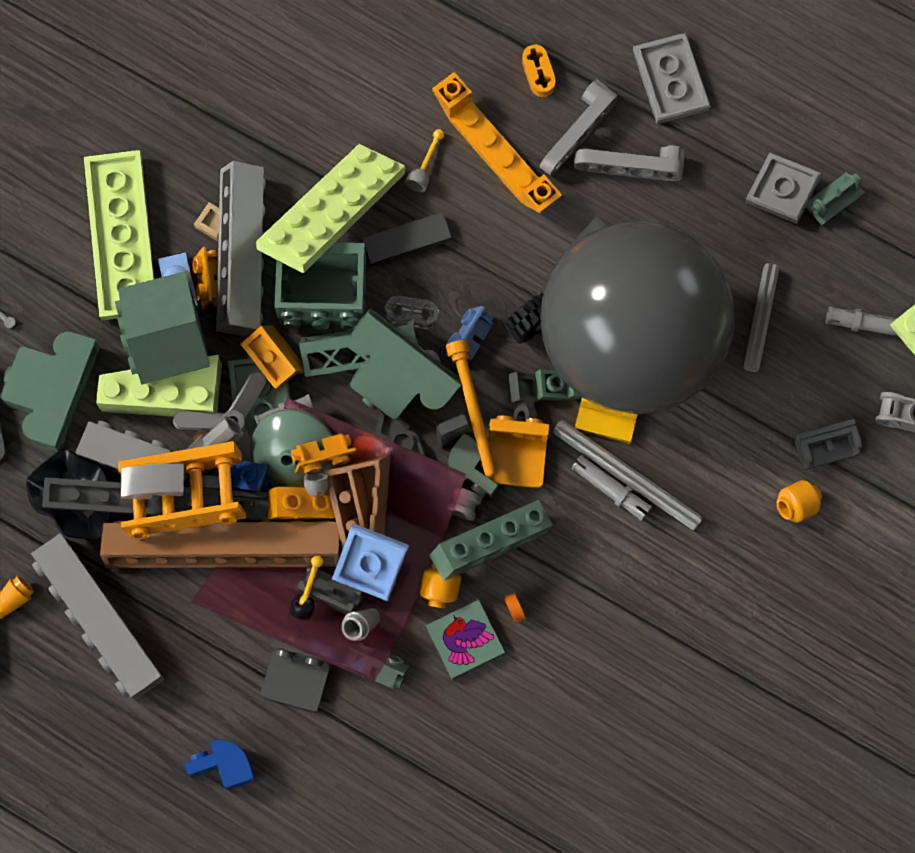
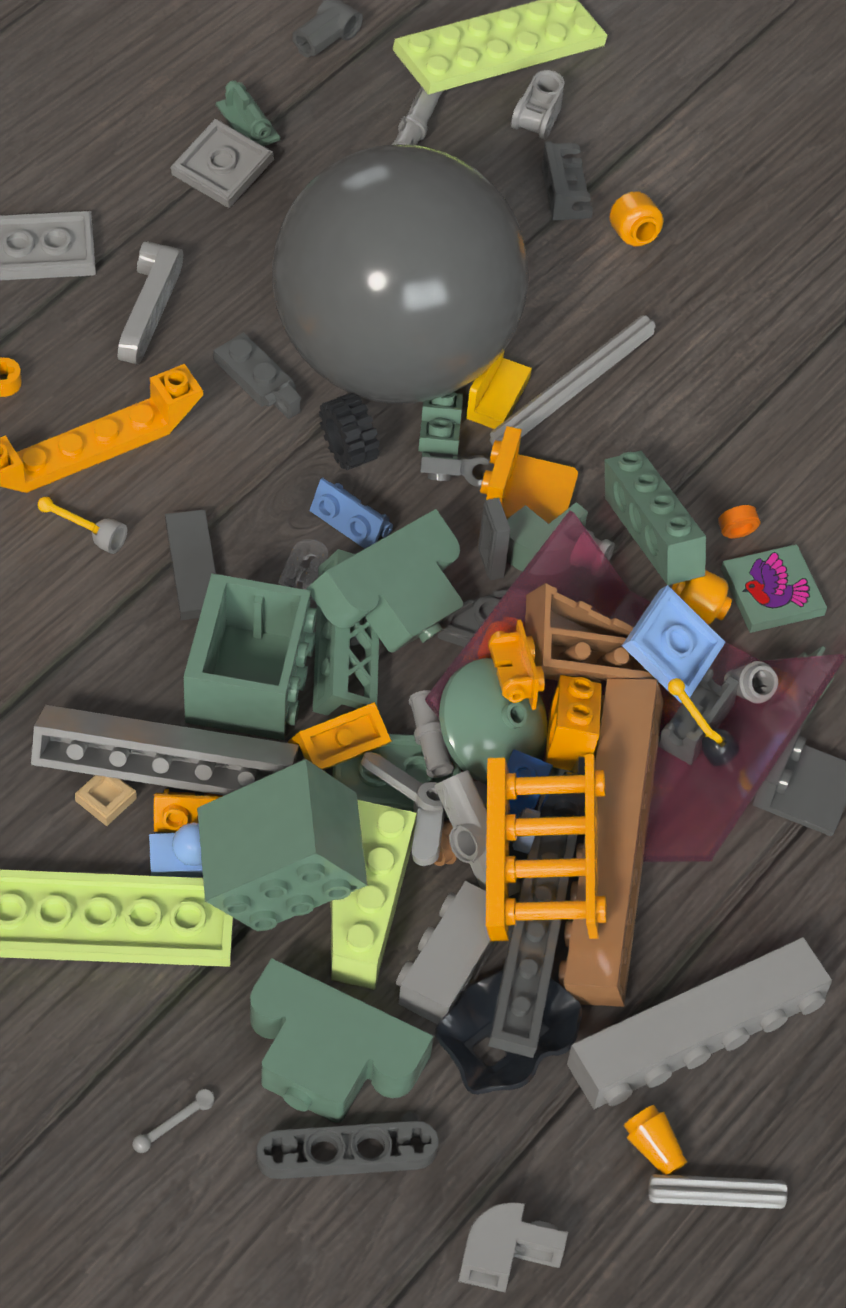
camera: 85 degrees left, 20 degrees down
(152, 479) = (531, 871): light grey slope -> none
(315, 483) = (560, 676): light grey hinge -> none
(330, 208) = (142, 616): yellowish green plate -> none
(459, 353) = (389, 507): light orange piece -> none
(601, 102) = (60, 319): light grey beam -> none
(621, 495) = (602, 389): light grey pin -> none

